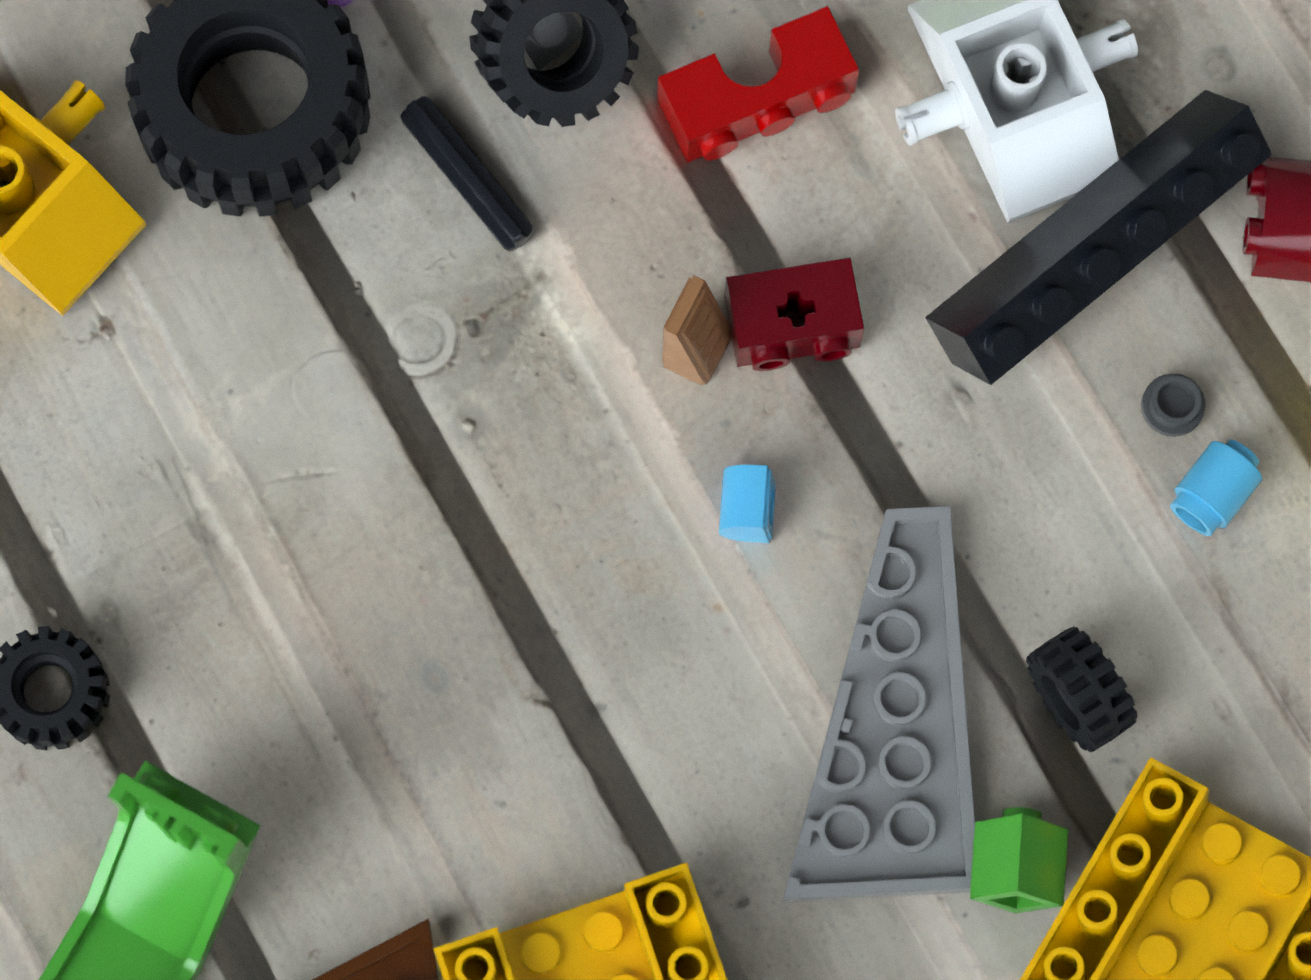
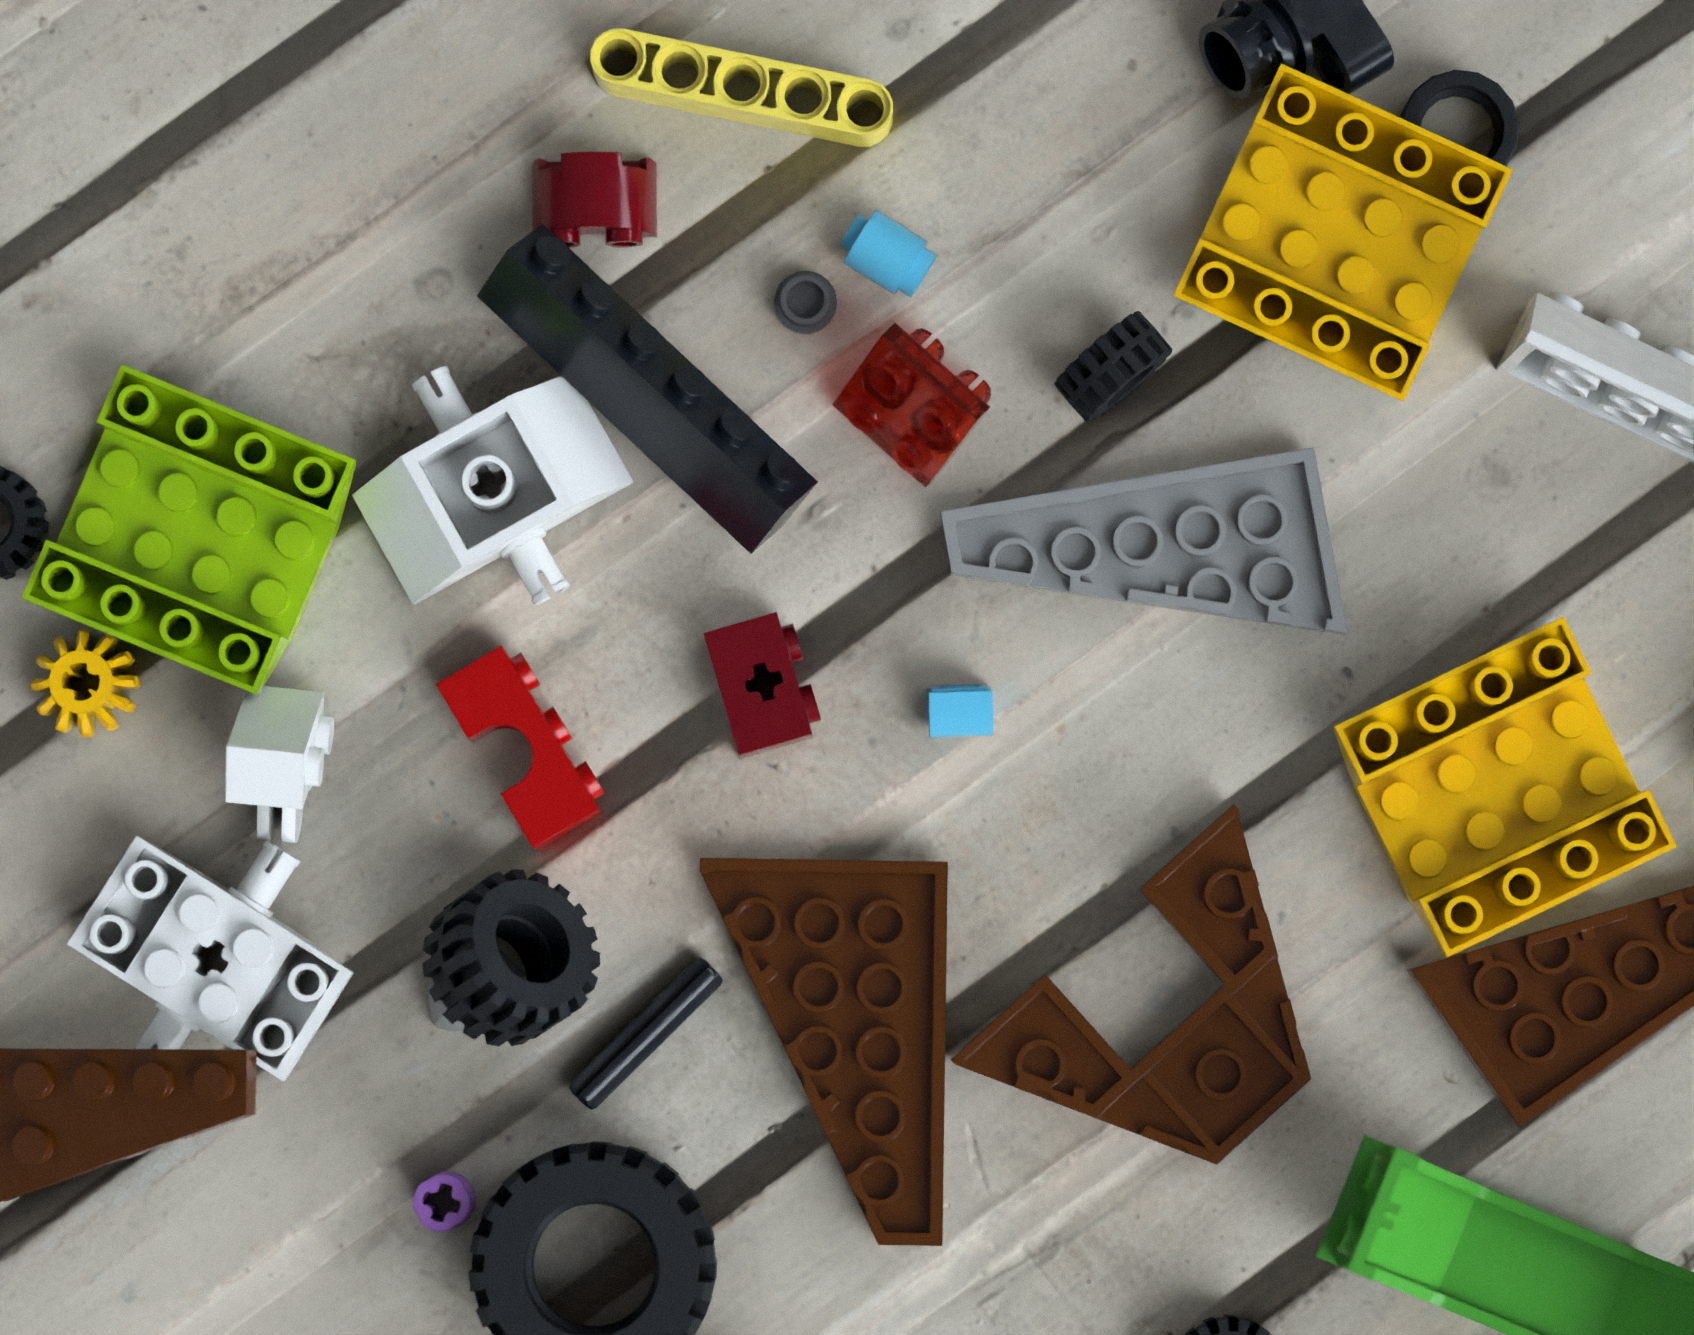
camera: 95 degrees left, 10 degrees up
(355, 713) = (1215, 1069): none -> reddish brown wing
(476, 375) = (859, 999): none -> reddish brown wing
(695, 333) = (798, 779): medium nougat slope -> none
(1019, 862) = (1285, 412): bright green brick -> none
(1060, 485) = (913, 402): none -> clear red plate

